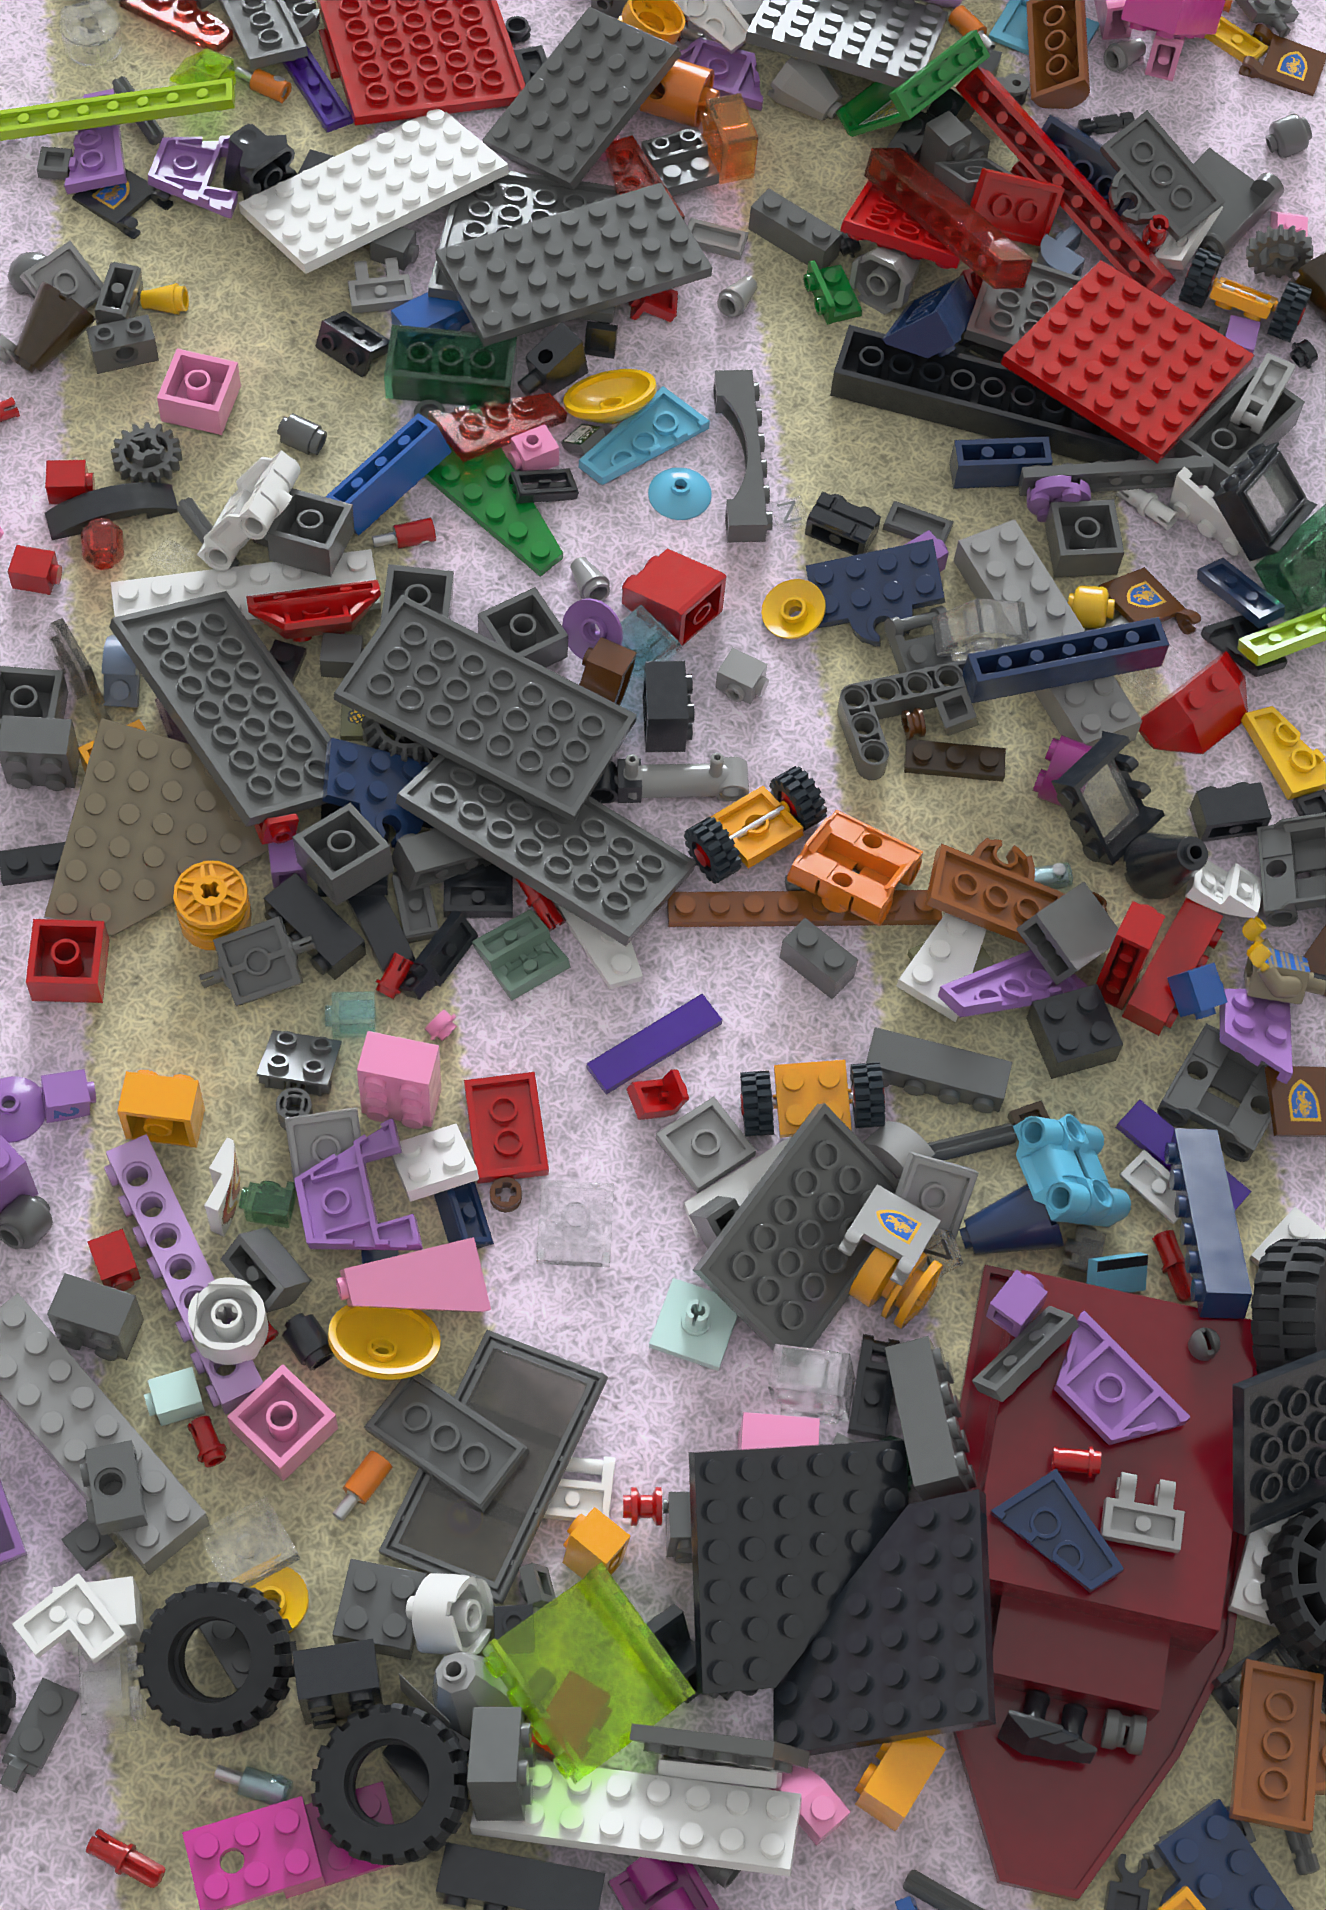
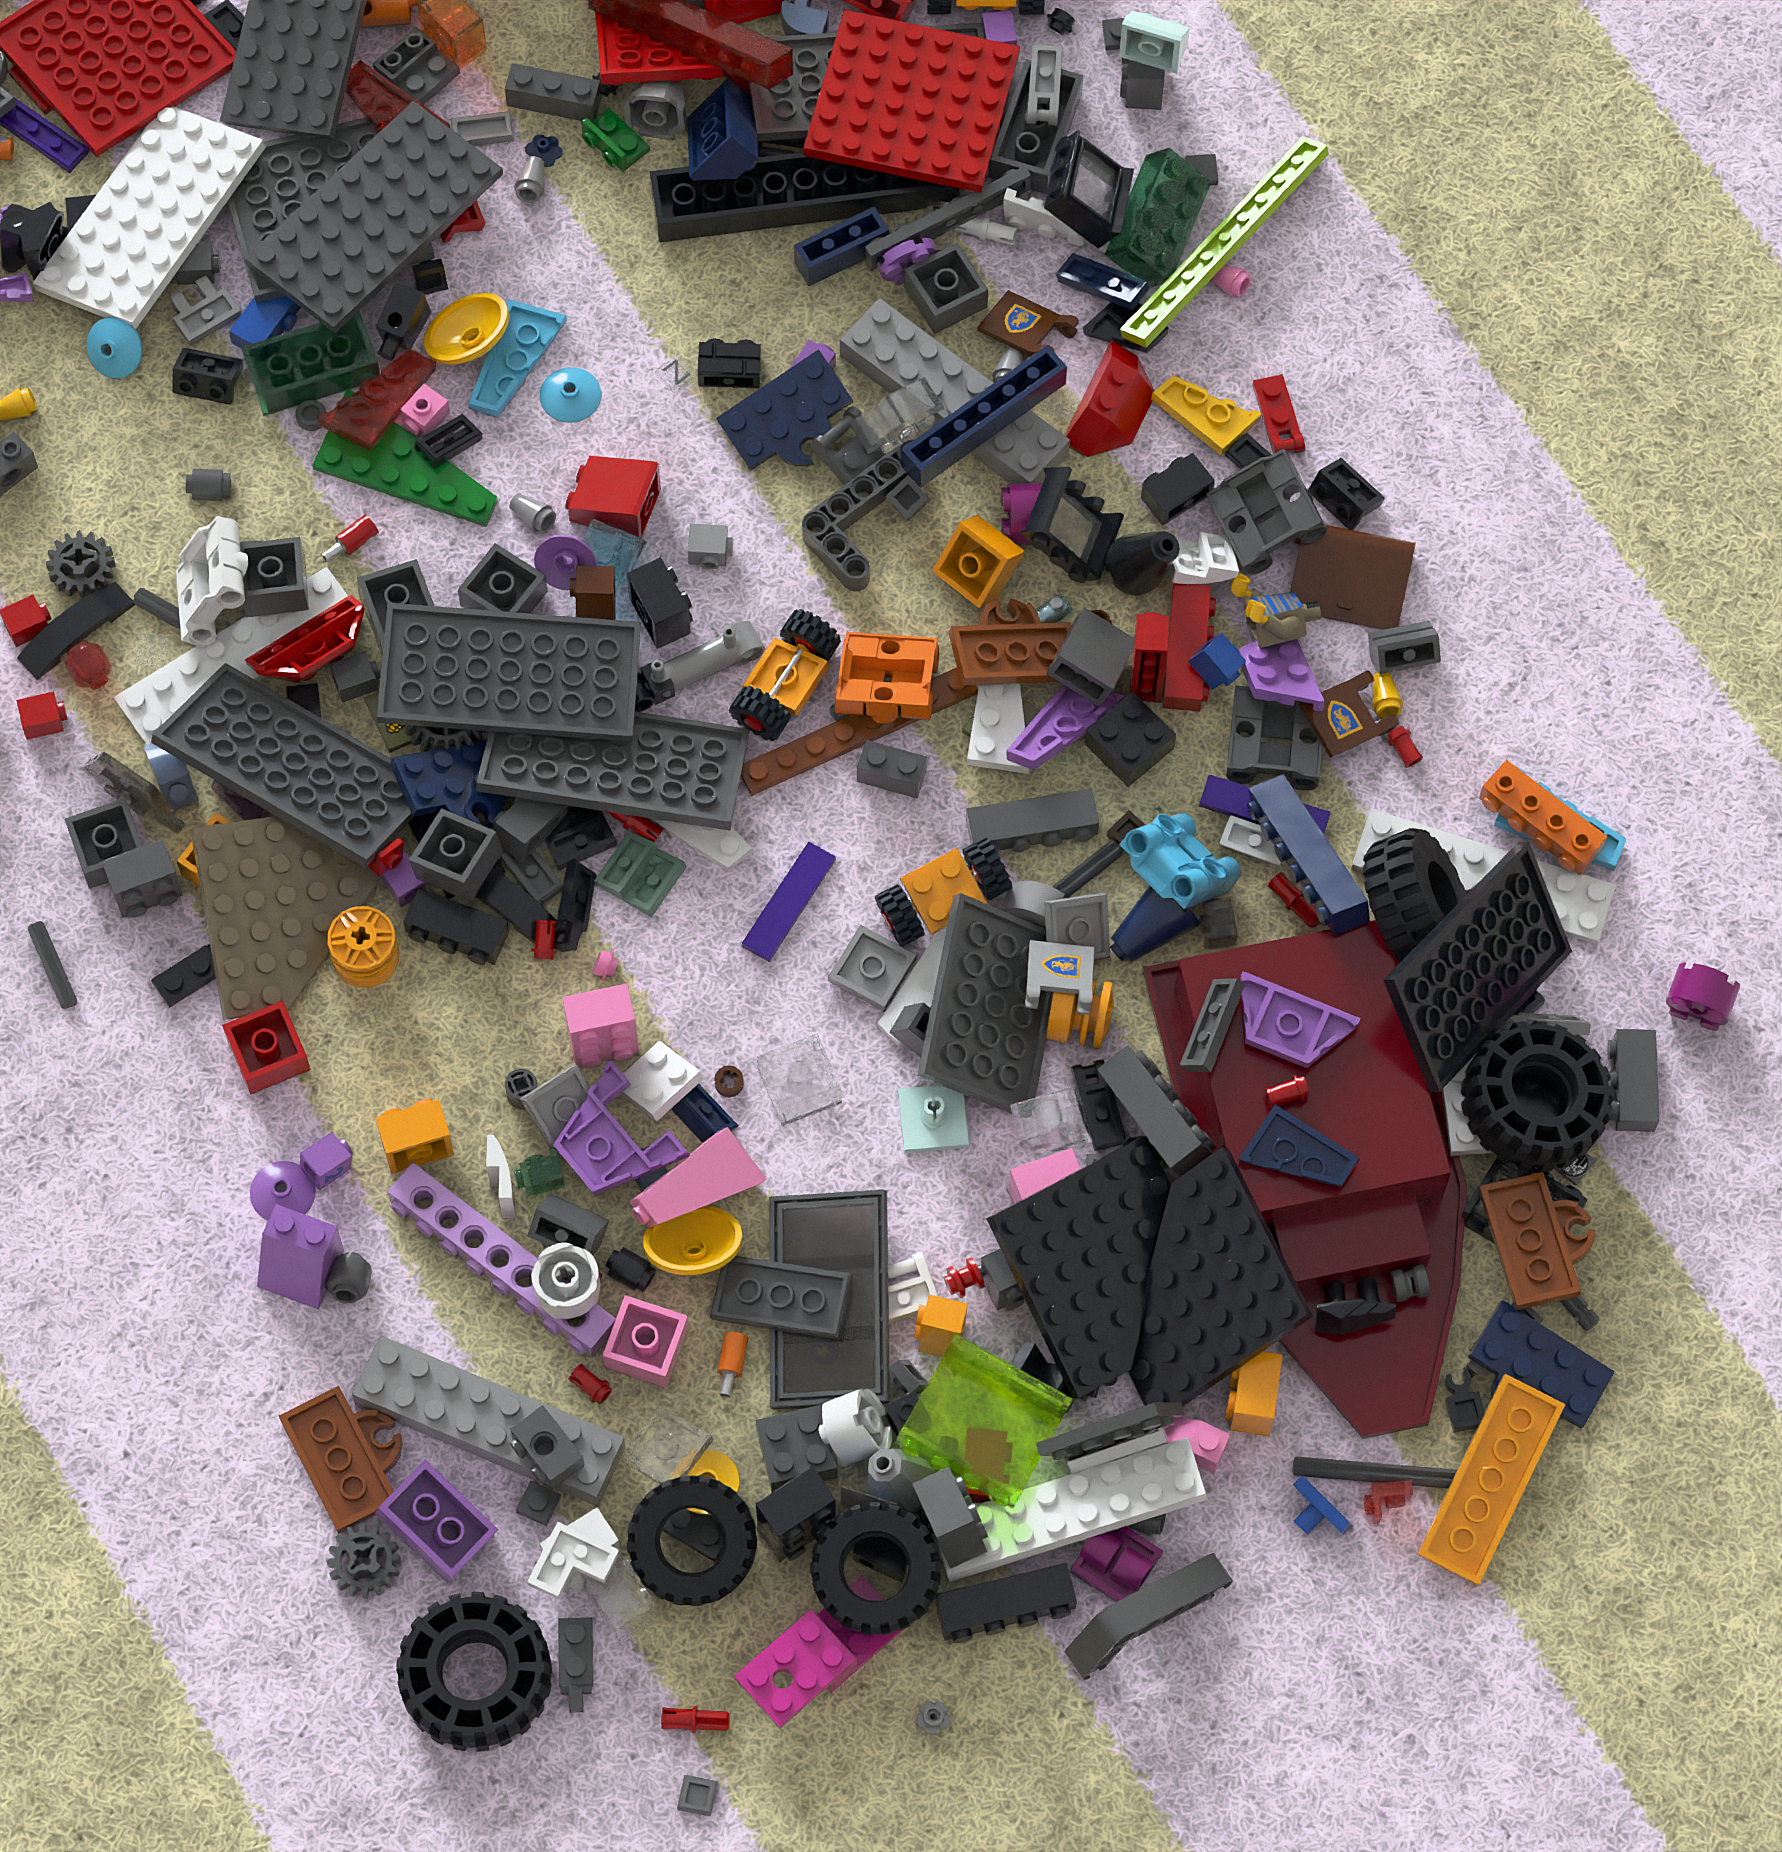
camera: 20 degrees left, 5 degrees up
(95, 1317) = (453, 1326): dark grey brick -> none
(114, 1260) = (440, 1276): red brick -> none
(174, 1397) = (548, 1360): light aqua brick -> none
(199, 391) = (97, 484): bright pink brick -> none
(257, 1784) = (766, 1620): clear light blue piece -> none
(258, 961) = (426, 977): dark grey plate -> none
(281, 285) = (124, 343): none -> medium azure dish
(299, 1060) = (503, 1045): dark grey hinge -> none
(351, 1014) = (527, 988): clear light blue brick -> none
(392, 471) = (312, 487): blue brick -> none
(506, 1127) = (702, 1025): red plate -> none
(583, 438) = (461, 380): tile -> none
(659, 1096) = (815, 944): red bracket -> none
(736, 399) = (579, 282): dark grey arch -> none
(765, 276) = (544, 148): none -> dark blue plant
(792, 597) = (712, 456): yellow dish -> none
(913, 723) = (875, 523): reddish brown bush -> none
(914, 522) = (792, 334): dark grey tile -> none
(944, 1250) = (1106, 970): clear tile -> none
(954, 760) = (917, 542): dark brown plate -> none
(998, 795) = (978, 561): none -> light orange brick
(1017, 1303) = (1188, 988): medium lavender brick -> none
(1092, 606) = (980, 349): yellow head -> none
(1119, 1272) = (1253, 926): medium azure tile -> none
(1139, 1523) = (1359, 1117): light grey plate -> none
(1198, 1346) = (1342, 958): dark grey hinge -> none

